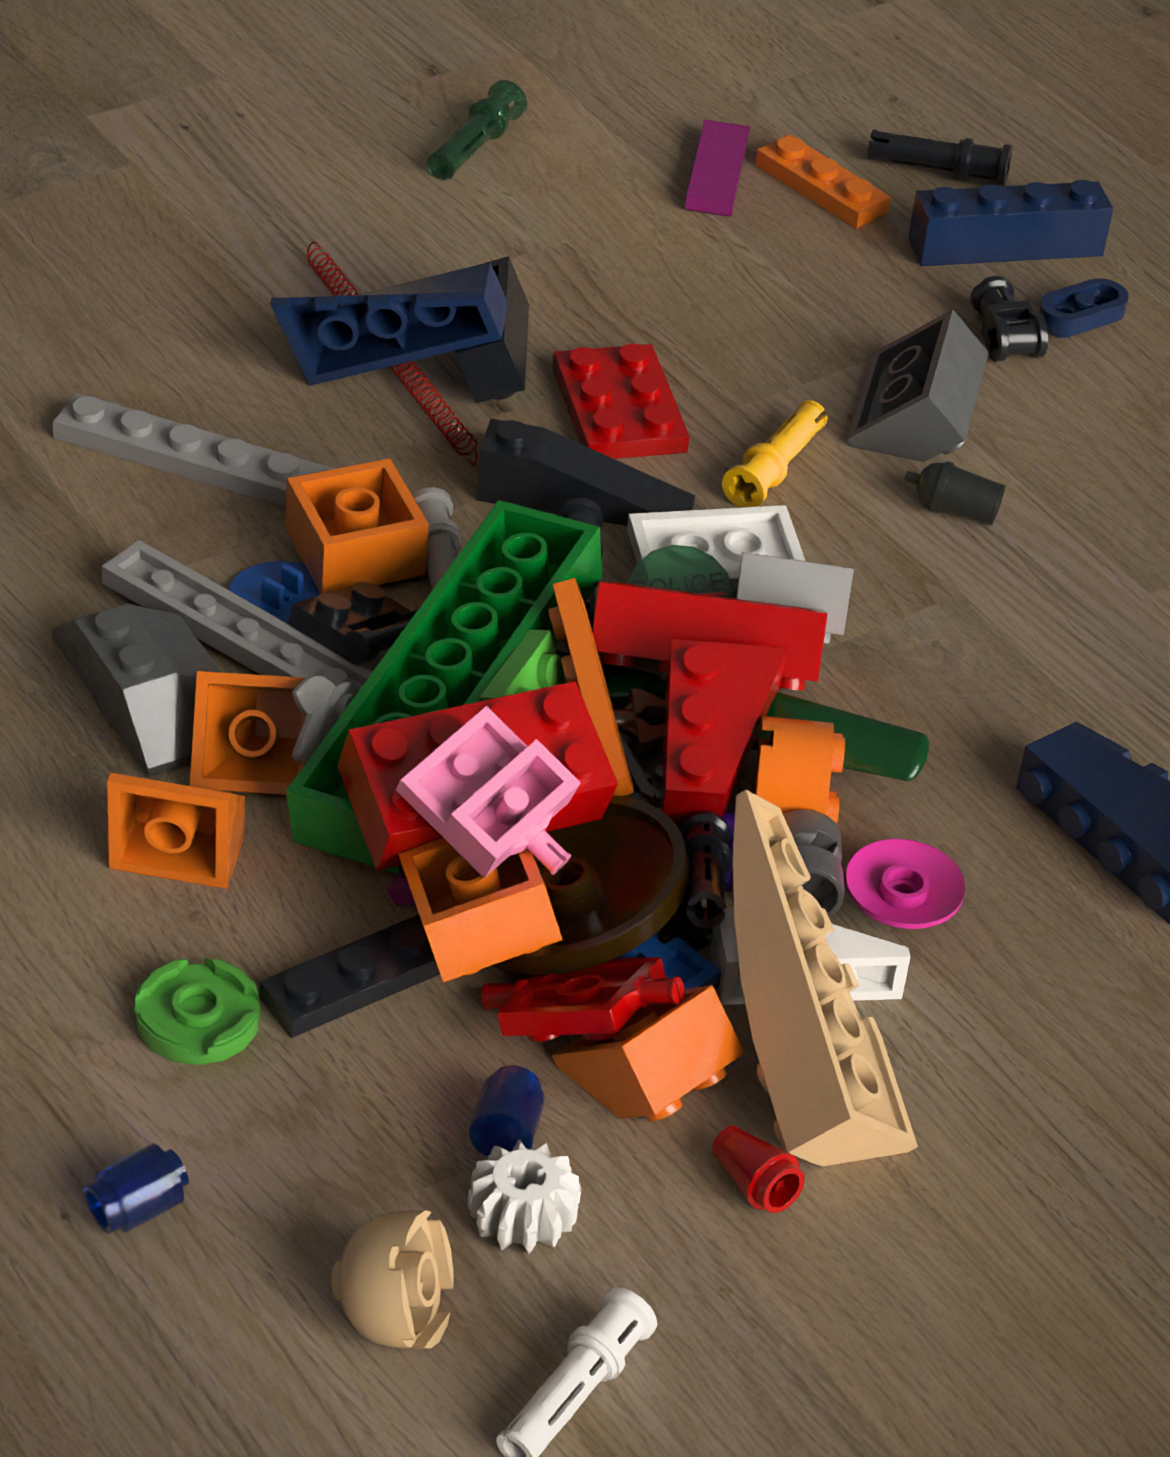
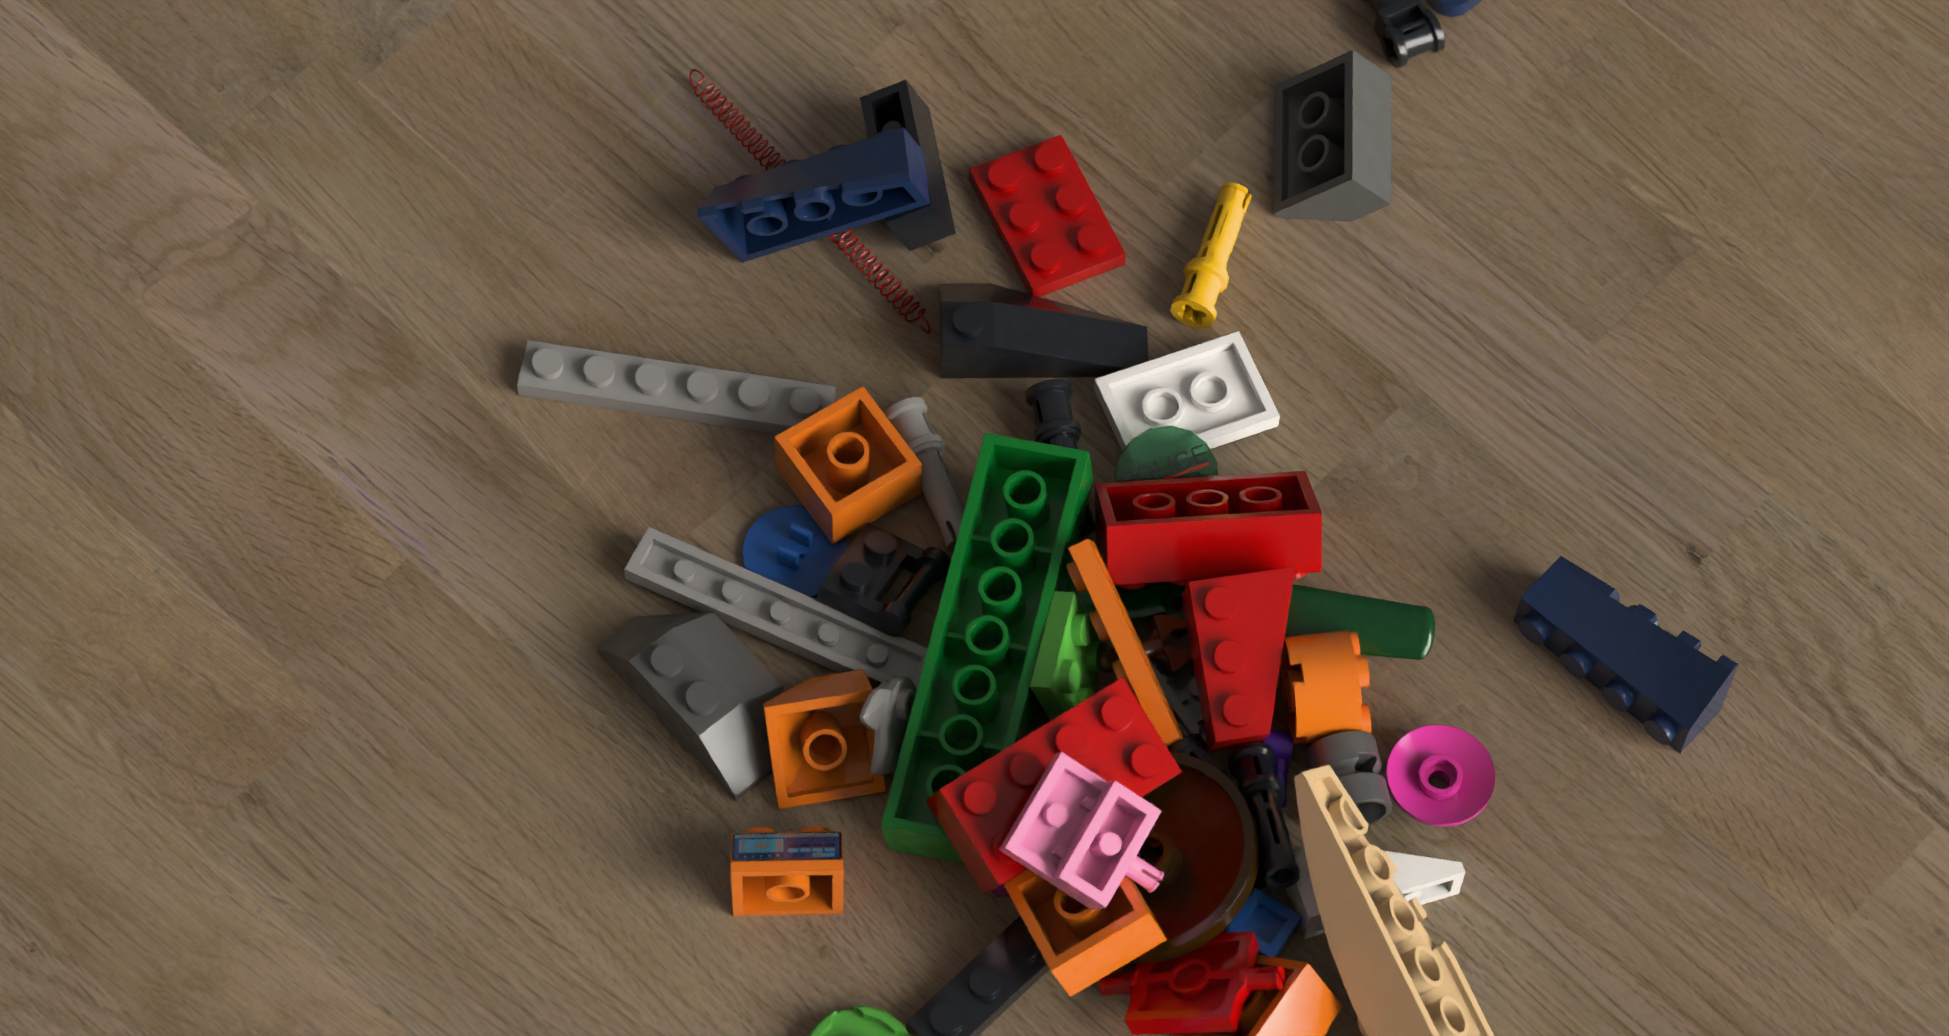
camera: 10 degrees left, 20 degrees up
(798, 585) = (1273, 444): light grey brick -> none
(957, 491) = (1395, 268): pearl dark grey piece -> none

